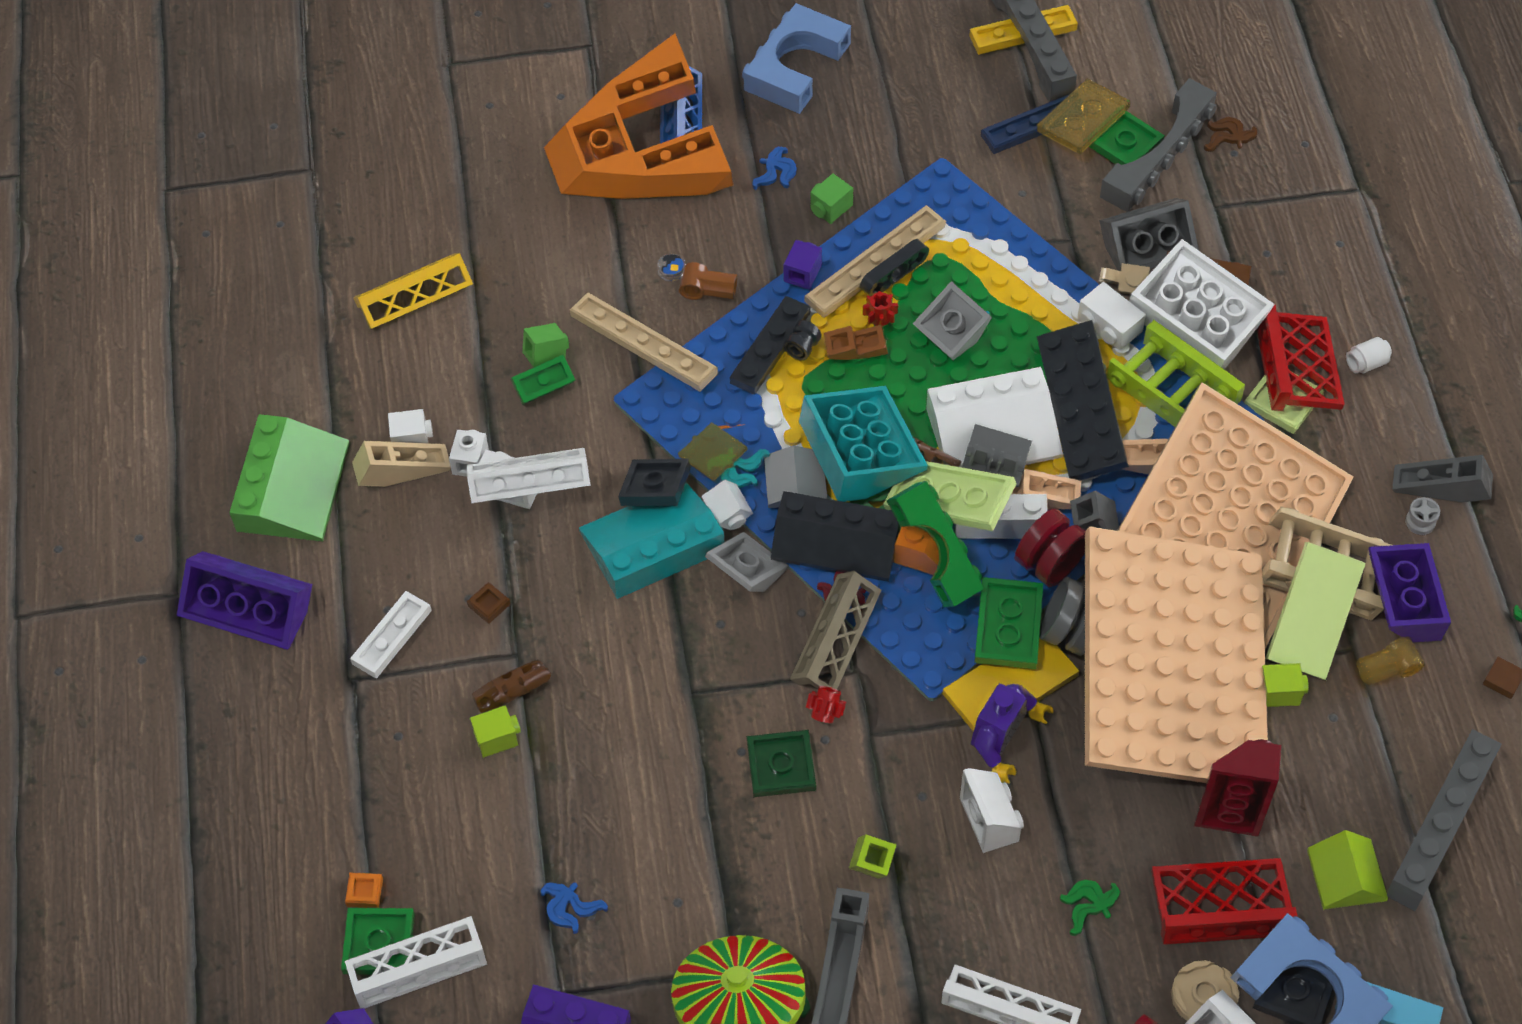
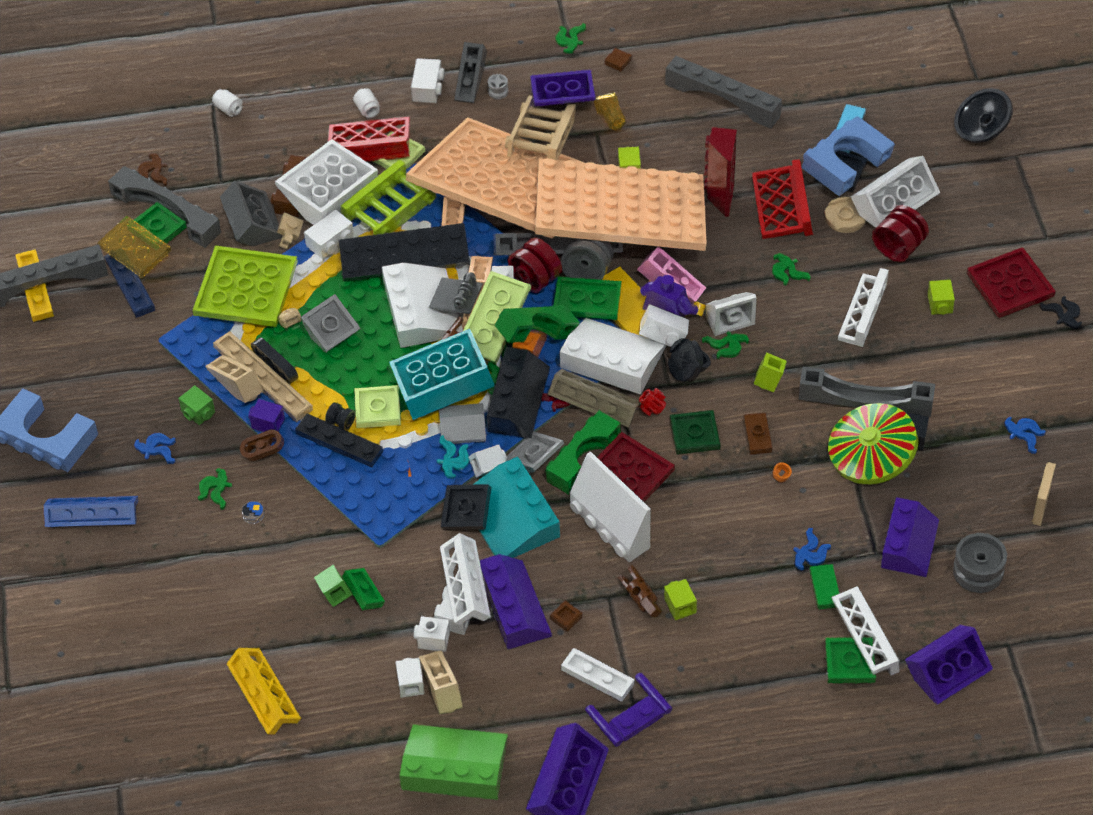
camera: 90 degrees left, 5 degrees down
(327, 681) = (636, 717): none -> dark purple plate
(364, 890) = (809, 676): orange tile -> none
(506, 918) = (824, 585): none -> green tile
(511, 539) = (513, 601): none -> dark purple slope
(596, 154) = (129, 559): orange piece -> none
(631, 647) = (611, 509): none -> white slope
(644, 342) = (328, 524): tan tile -> none
(699, 281) = (273, 488): dark orange piece -> none
(703, 863) = (777, 469): none -> orange hinge
(709, 674) = (636, 465): none -> dark red plate
(713, 451) = (439, 471): clear yellow piece -> none
(715, 599) = (596, 434): none -> green arch
(720, 232) = (218, 483): none -> green piece
(765, 266) = (262, 443): none -> reddish brown plate
(775, 844) = (757, 433): none -> reddish brown plate
(822, 376) = (377, 406): none -> yellowish green tile
(848, 345) = (341, 385): dark orange slope -> none
(861, 228) = (235, 378): none -> tan slope
(880, 309) = (313, 368): red gear -> none
(896, 748) = (687, 360): none -> black tile
(909, 652) = (611, 355): none -> white slope
(938, 822) = (734, 344): none -> green piece
(951, 716) = (663, 326): none -> white brick
(968, 281) = (289, 317): none -> tan piece
(1020, 232) = (245, 286): none -> lime plate
(1057, 738) = (660, 264): none -> bright pink slope
(1315, 610) = (581, 134): yellowish green tile -> none
(1346, 871) = (760, 144): lime slope -> none
(1352, 198) = (227, 102): none -> white brick
(1422, 425) = (426, 80): none -> white brick

